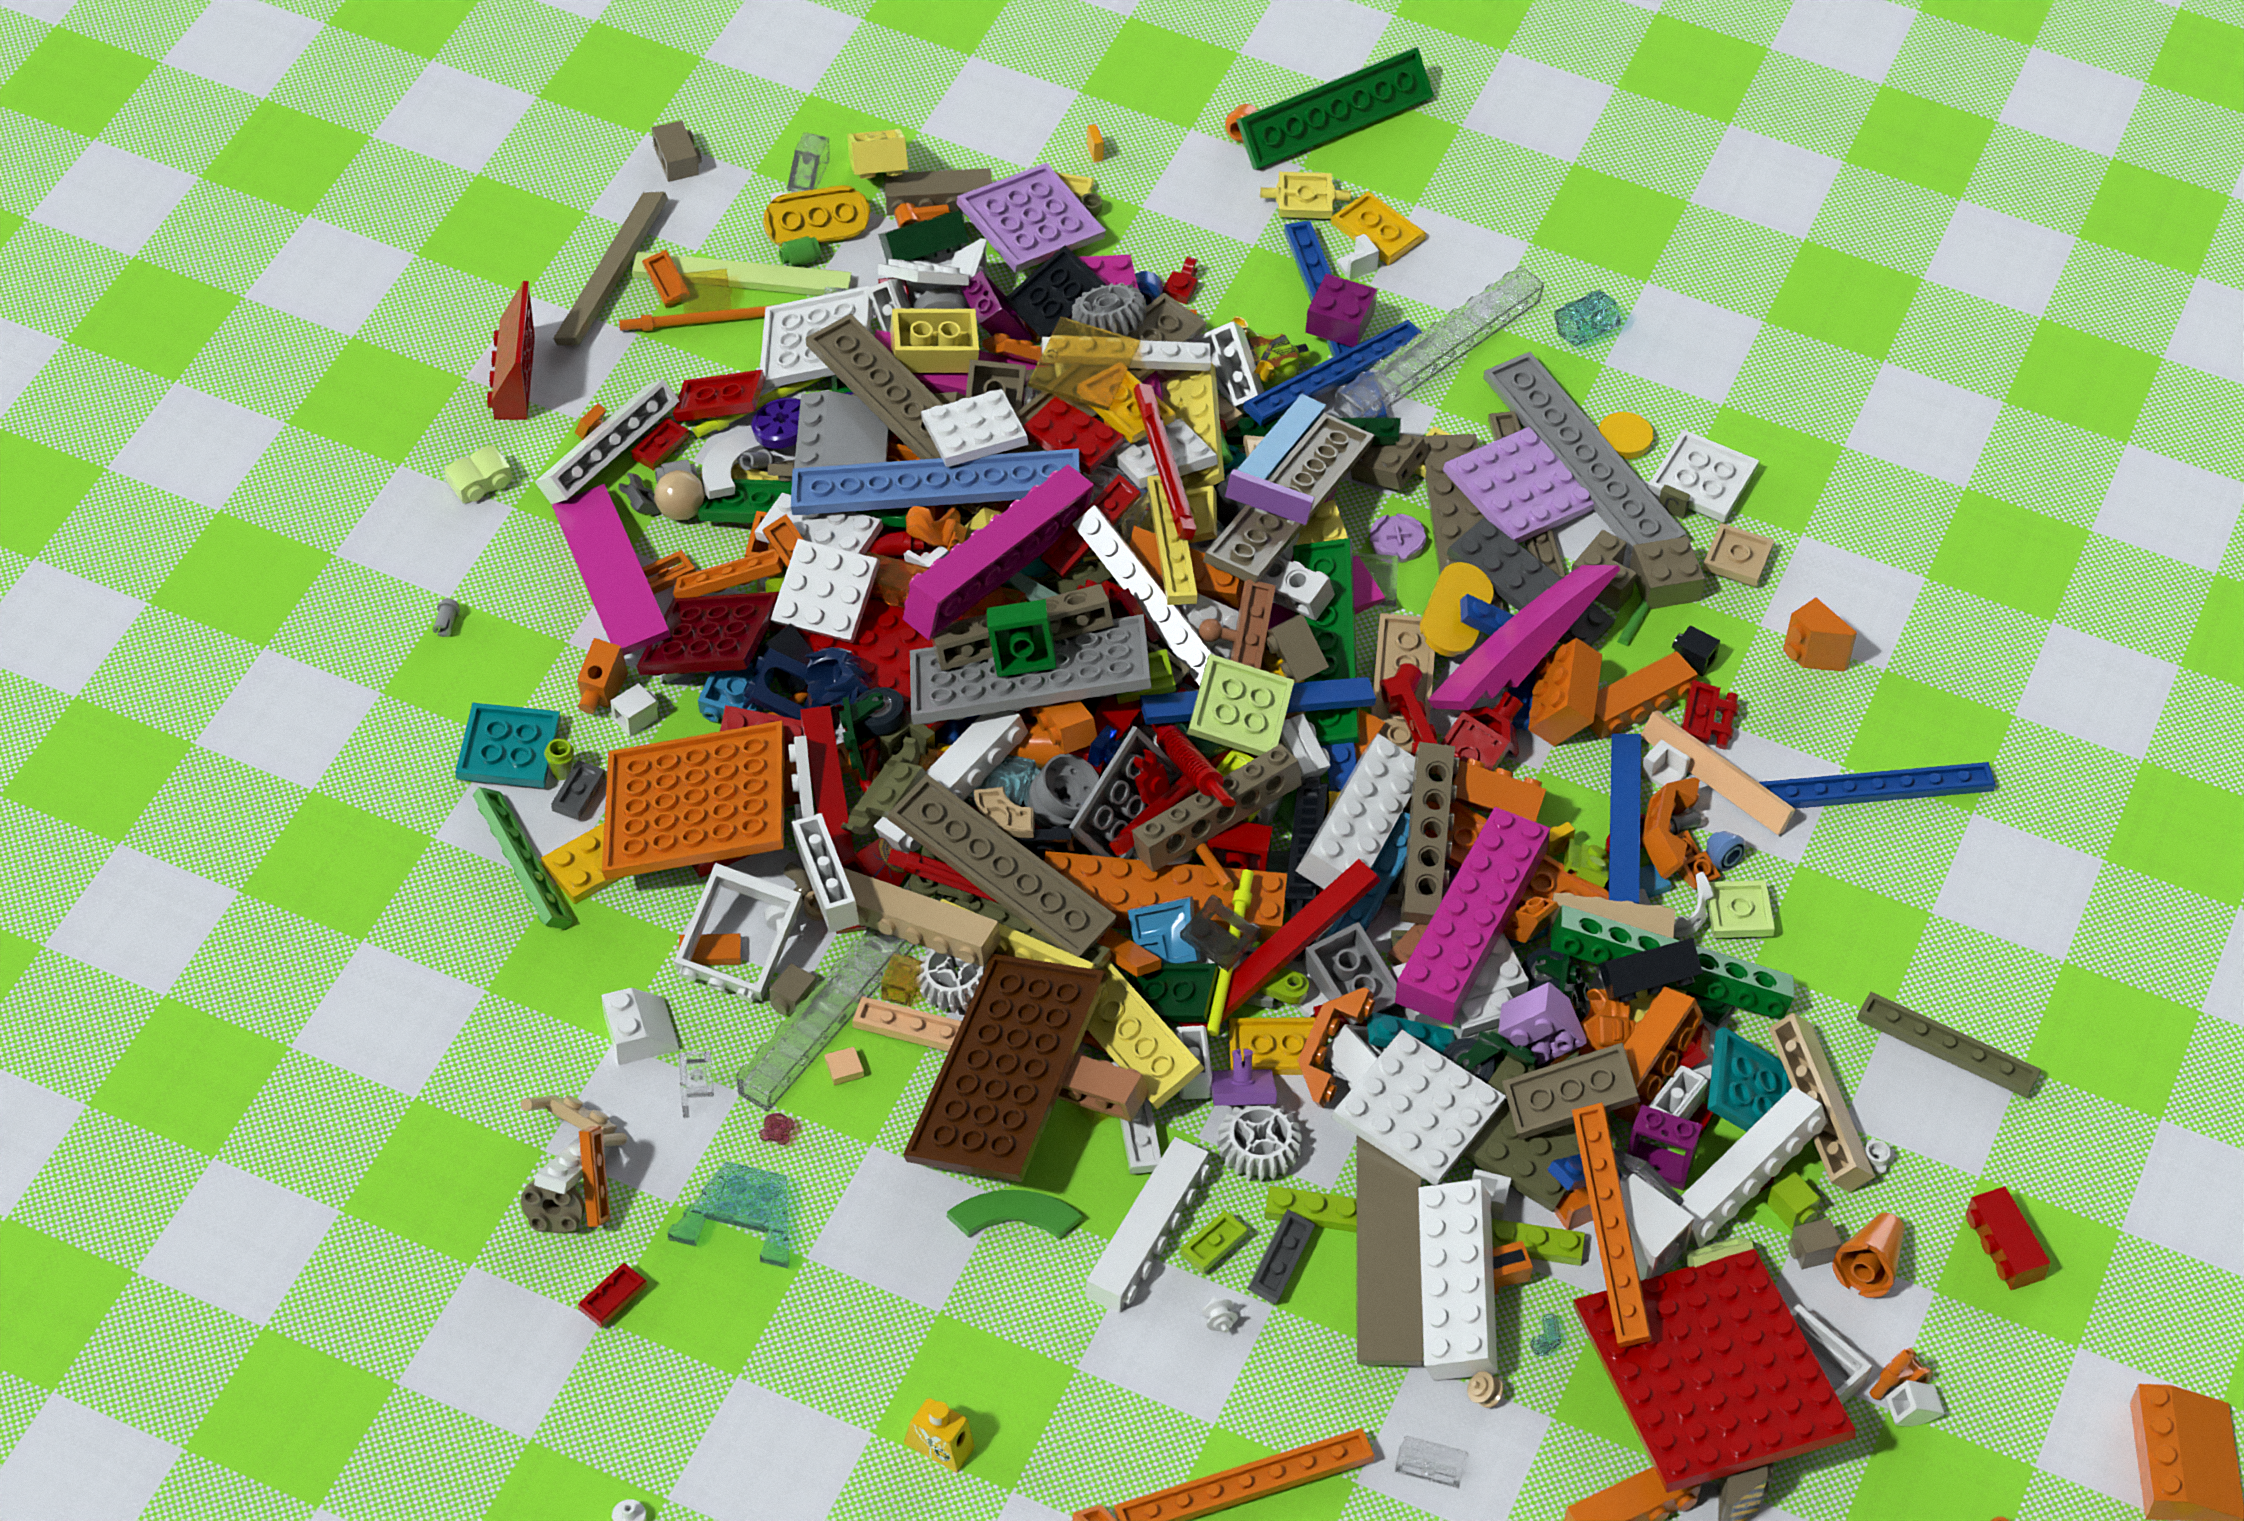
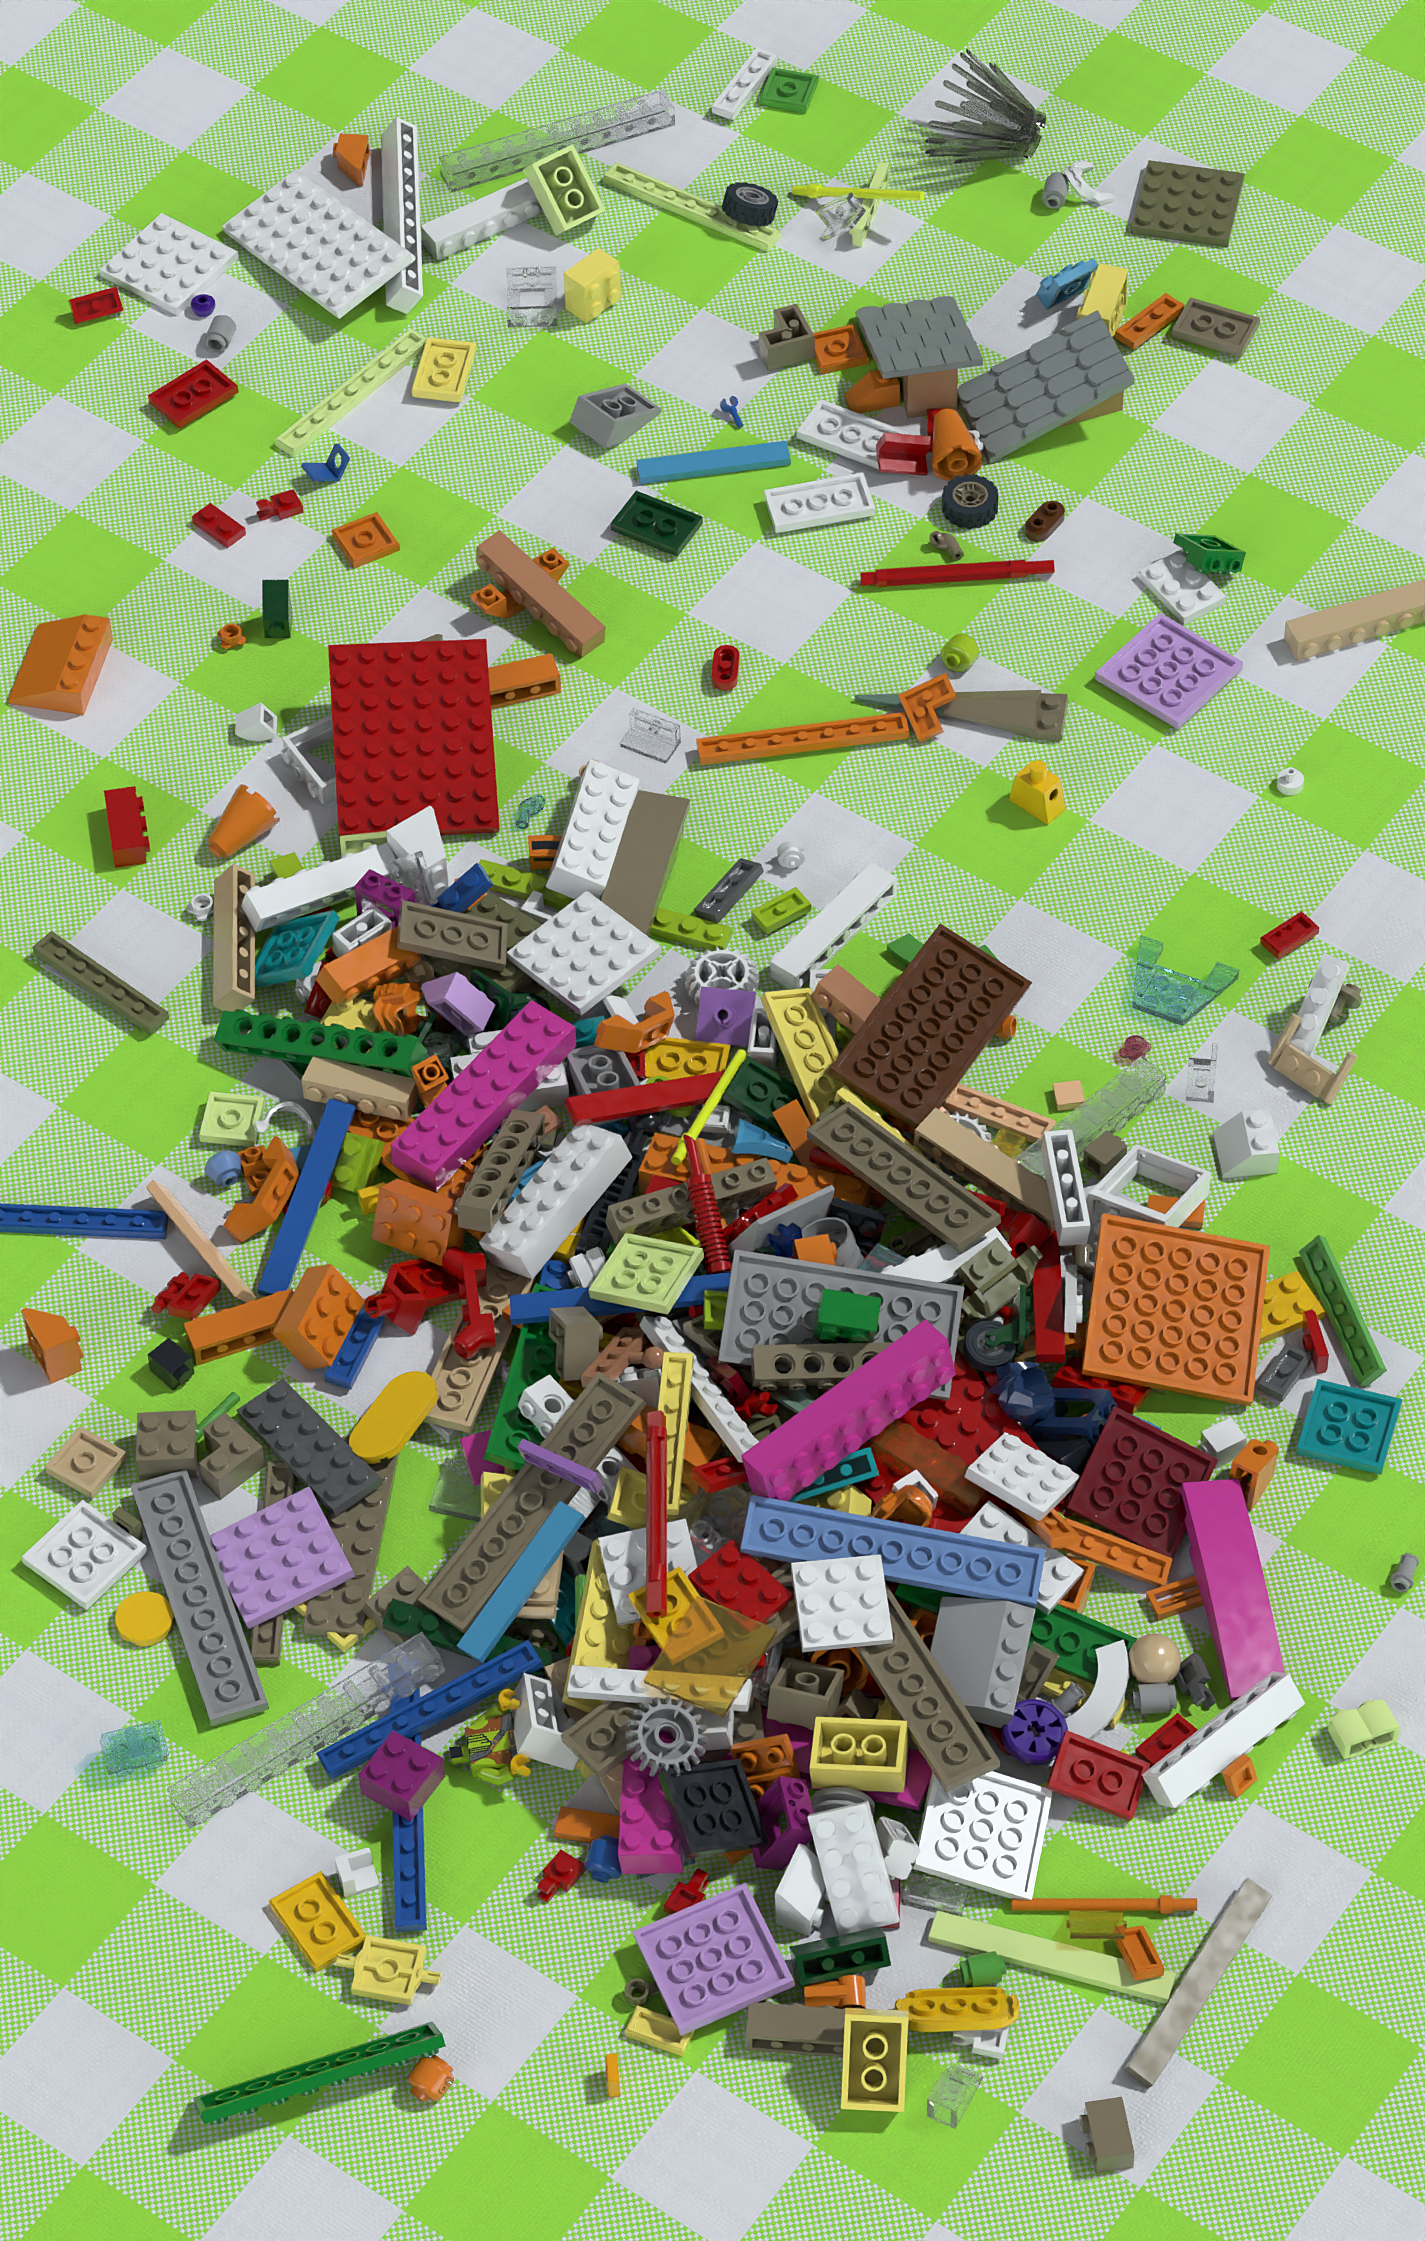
camera: 165 degrees left, 0 degrees up
(513, 359) = (1320, 1847): red slope -> none
(549, 819) = (1314, 1341): none -> red plate
(559, 756) = (1300, 1390): lime cone -> none
(594, 1176) = (1298, 996): orange tile -> none
(1009, 817) = (892, 1235): tan tile -> none
(1216, 941) = (721, 1105): clear smoke plate -> none
(1398, 536) = (420, 1535): lavender tile -> none
(1482, 615) = (357, 1401): blue plate -> none
(1523, 639) = (340, 1357): dark pink slope -> none
(1611, 1225) = (457, 830): orange plate -> none
(1650, 970) = (349, 1009): black brick -> none
(1665, 764) = (247, 1259): white panel -> none
(1814, 1243) = (285, 840): dark tan brick -> none
(1901, 1368) = (256, 740): orange piece -> none

